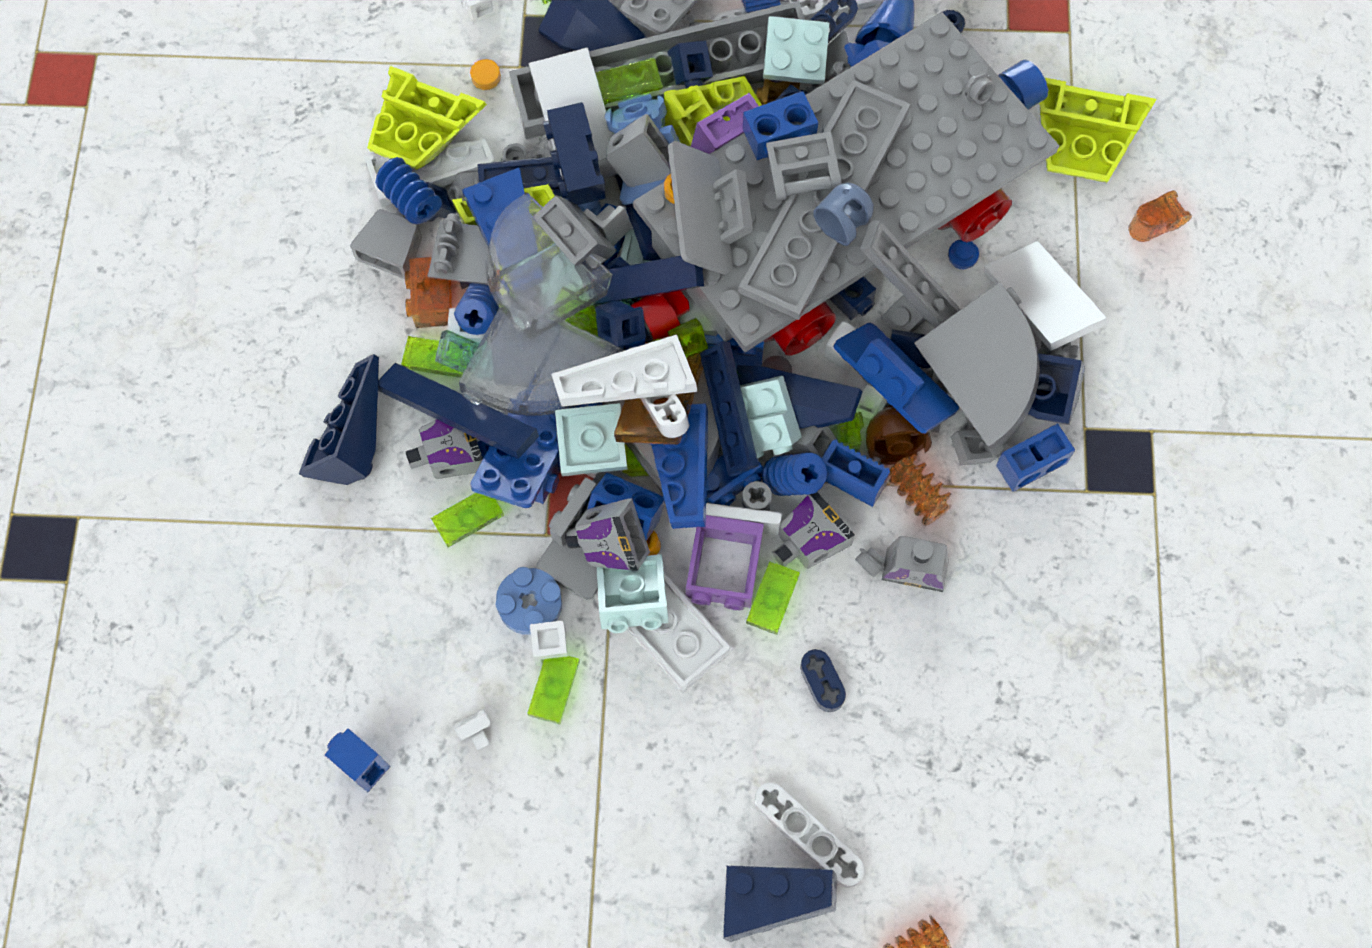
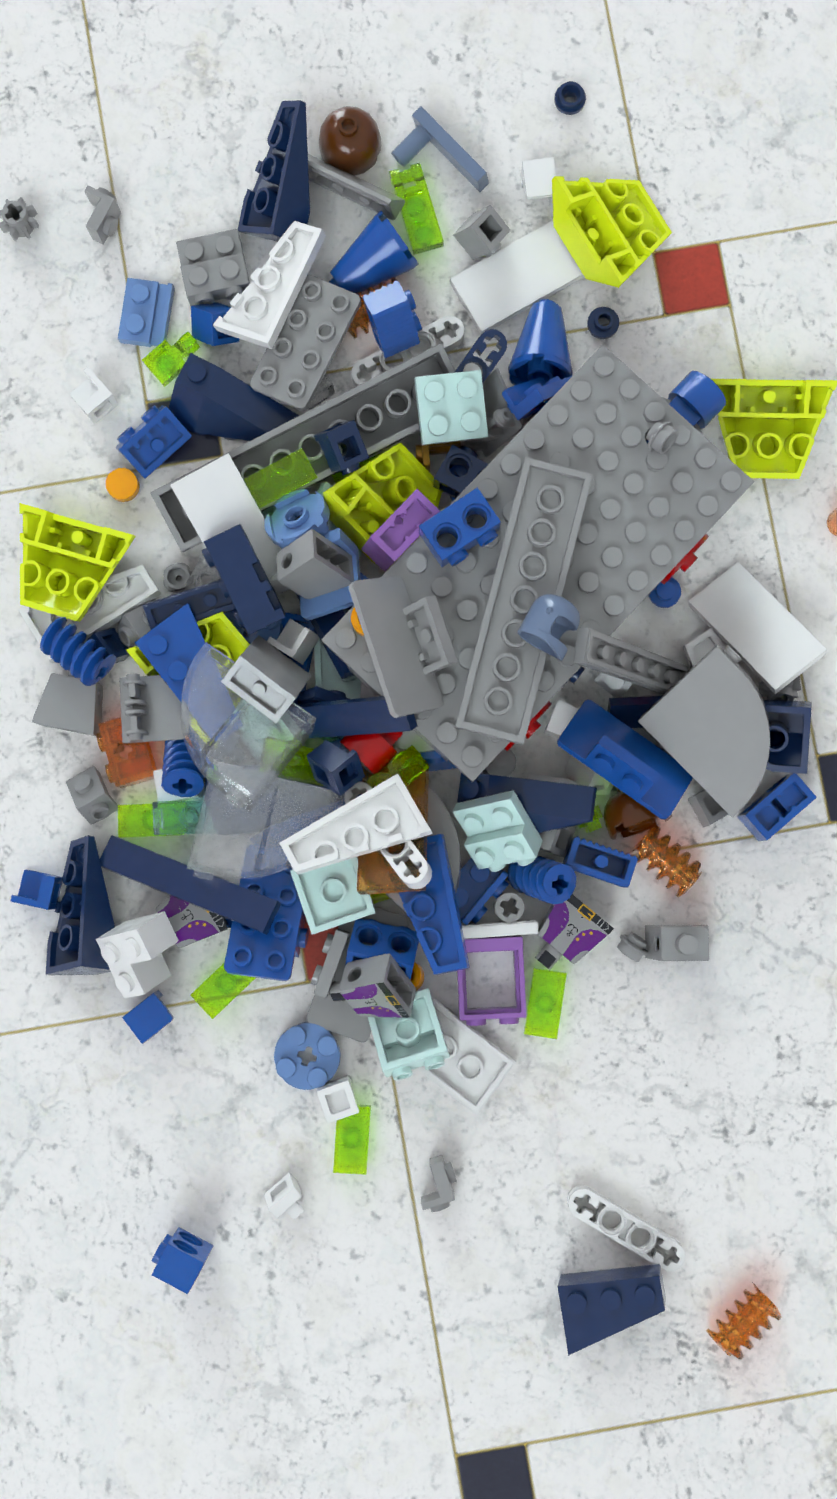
camera: 10 degrees left, 15 degrees up
(314, 398) = (38, 890): none -> blue panel
(385, 528) = (148, 1017): none -> blue panel
(386, 326) = (91, 795): none -> light grey bracket
(388, 461) = (135, 953): none -> white brick
(523, 42) = (152, 440): none -> blue bracket
(636, 742) = (443, 1177): none -> light grey bracket
(729, 409) = (465, 831): dark blue tile -> none
(801, 156) = (491, 565): light grey plate -> none
(829, 677) = (603, 1079): dark blue beam -> none

